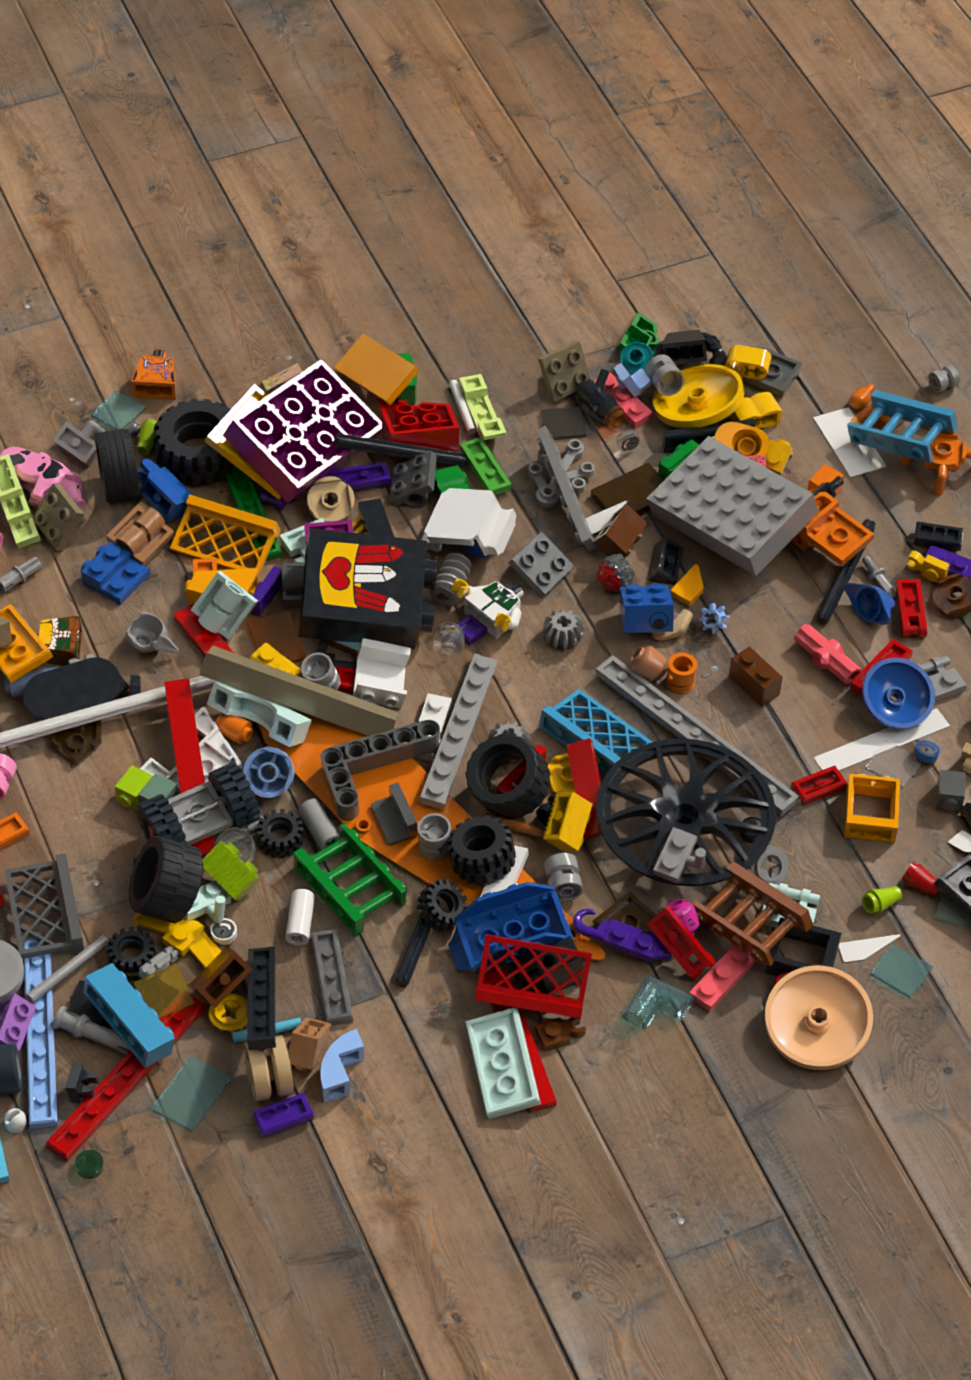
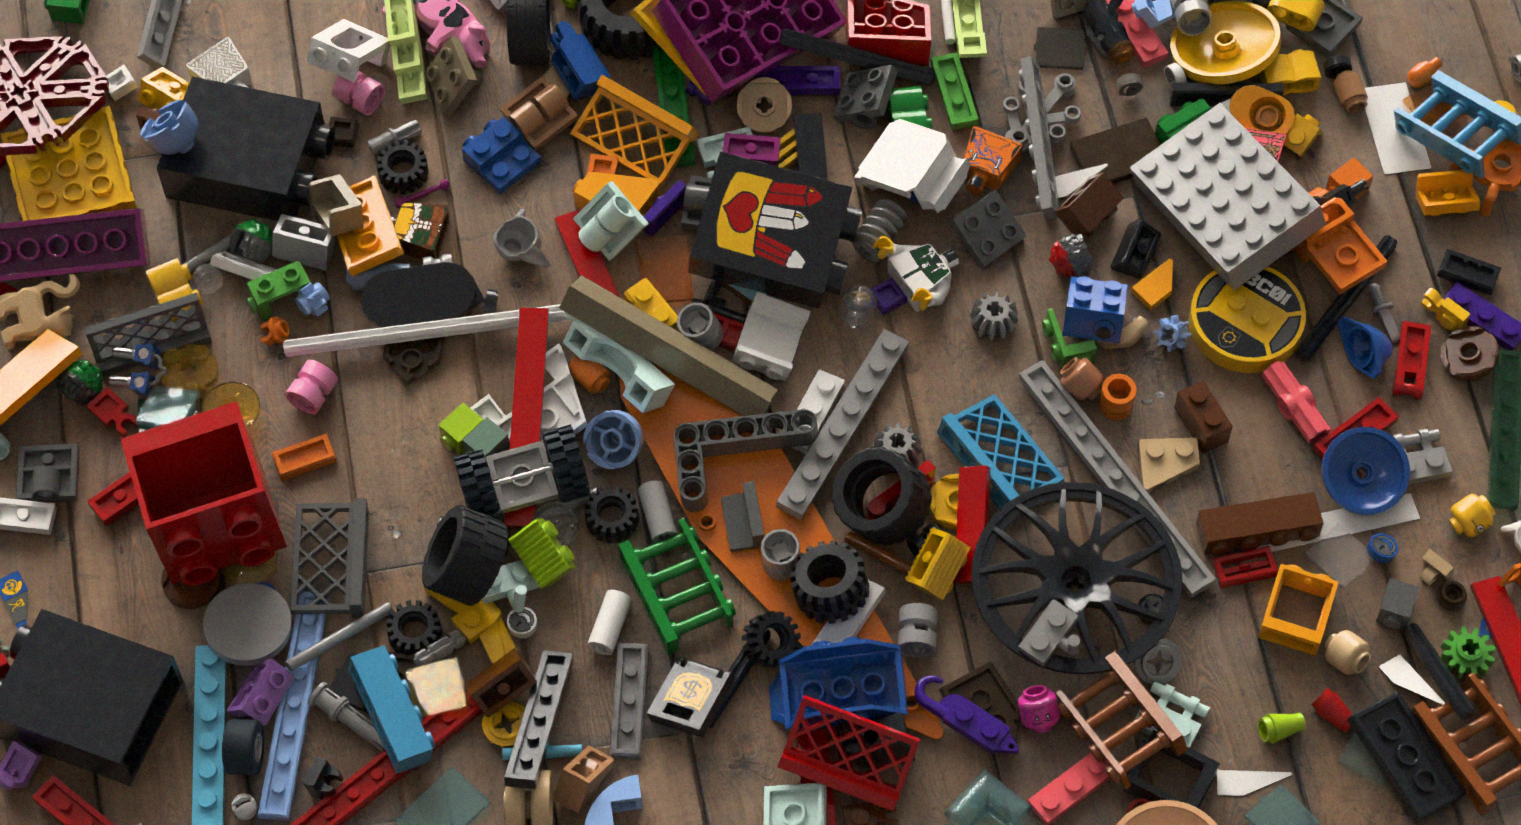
camera: 15 degrees right, 10 degrees up
(29, 585) = (405, 180): none -> black tyre
(36, 622) = (443, 184): none -> magenta hinge
(384, 955) = (693, 689): none -> container
(531, 511) = (990, 160): none -> orange torso
(623, 644) = (1059, 350): none -> bright green bracket
(661, 425) = (1175, 74): none -> white tile
(680, 942) = (1030, 740): red plate -> none
(733, 715) = (1166, 460): none -> tan wing
(773, 601) = (1250, 324): none -> piece
(792, 402) = (1336, 65): none -> black tile
(808, 418) = (1350, 91): none -> medium nougat brick
(822, 749) = (1259, 523): none -> reddish brown brick
(904, 480) = (1446, 193): none -> light orange bracket
(920, 833) = (1347, 652): none -> tan head

